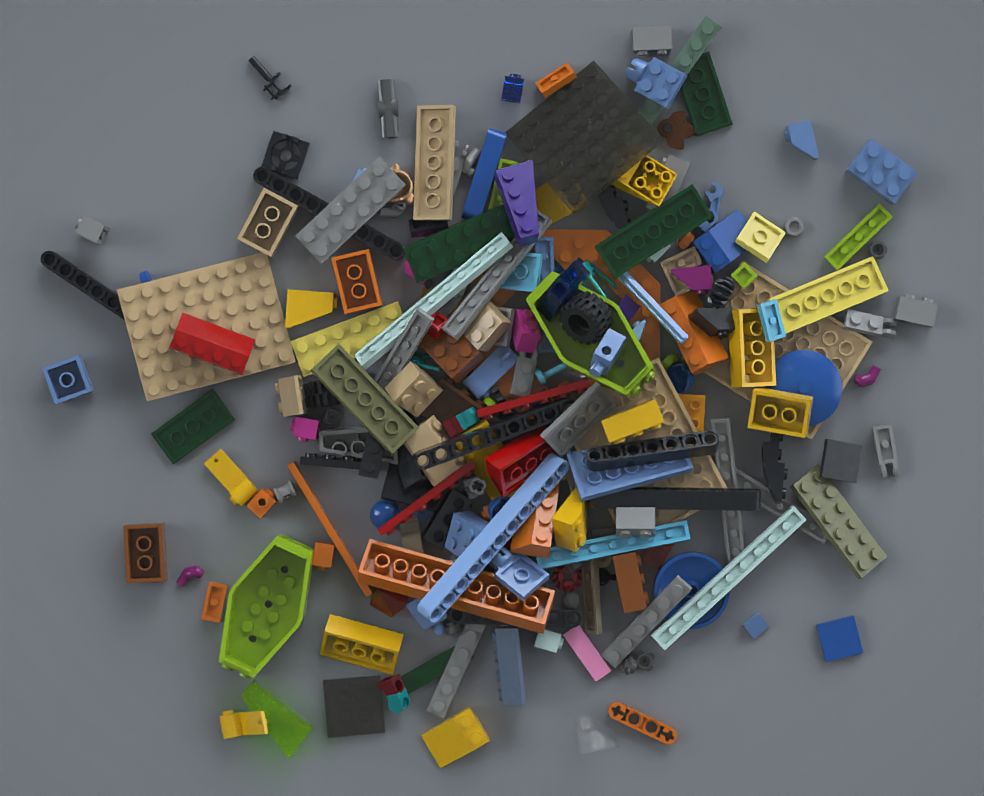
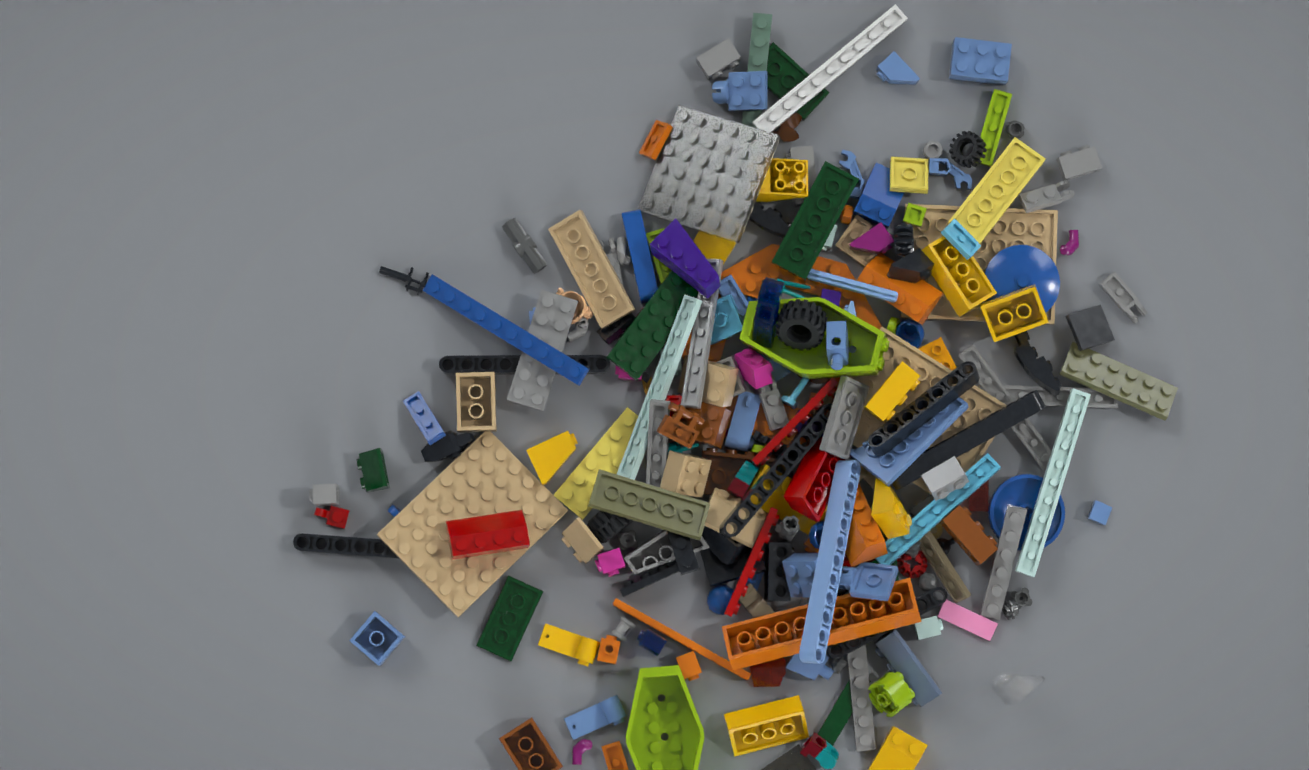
camera: 30 degrees left, 5 degrees down
(92, 253) = (335, 517): none -> red plate
(146, 232) = (374, 470): none -> dark green slope
(215, 211) = (424, 418): none -> tile
(219, 553) = (595, 717): none -> medium blue door
(222, 247) = (446, 447): none -> black hinge
(279, 137) = (445, 350): black piece -> none
(302, 517) = (651, 641): none -> clear blue brick
(328, 174) = (506, 330): none -> blue plate
(357, 281) = (583, 410): orange brick -> none
(425, 348) = (678, 431): none -> dark orange plate
(483, 679) = (890, 693): none -> lime brick
(512, 88) = (622, 168): clear blue brick -> none
(641, 725) = (1051, 654): orange beam -> none
(744, 105) = (830, 70): none -> white plate
(804, 263) = (959, 176): none -> medium blue piece
(831, 251) = (974, 156): none -> black tyre
(839, 638) = (1178, 482): blue tile -> none

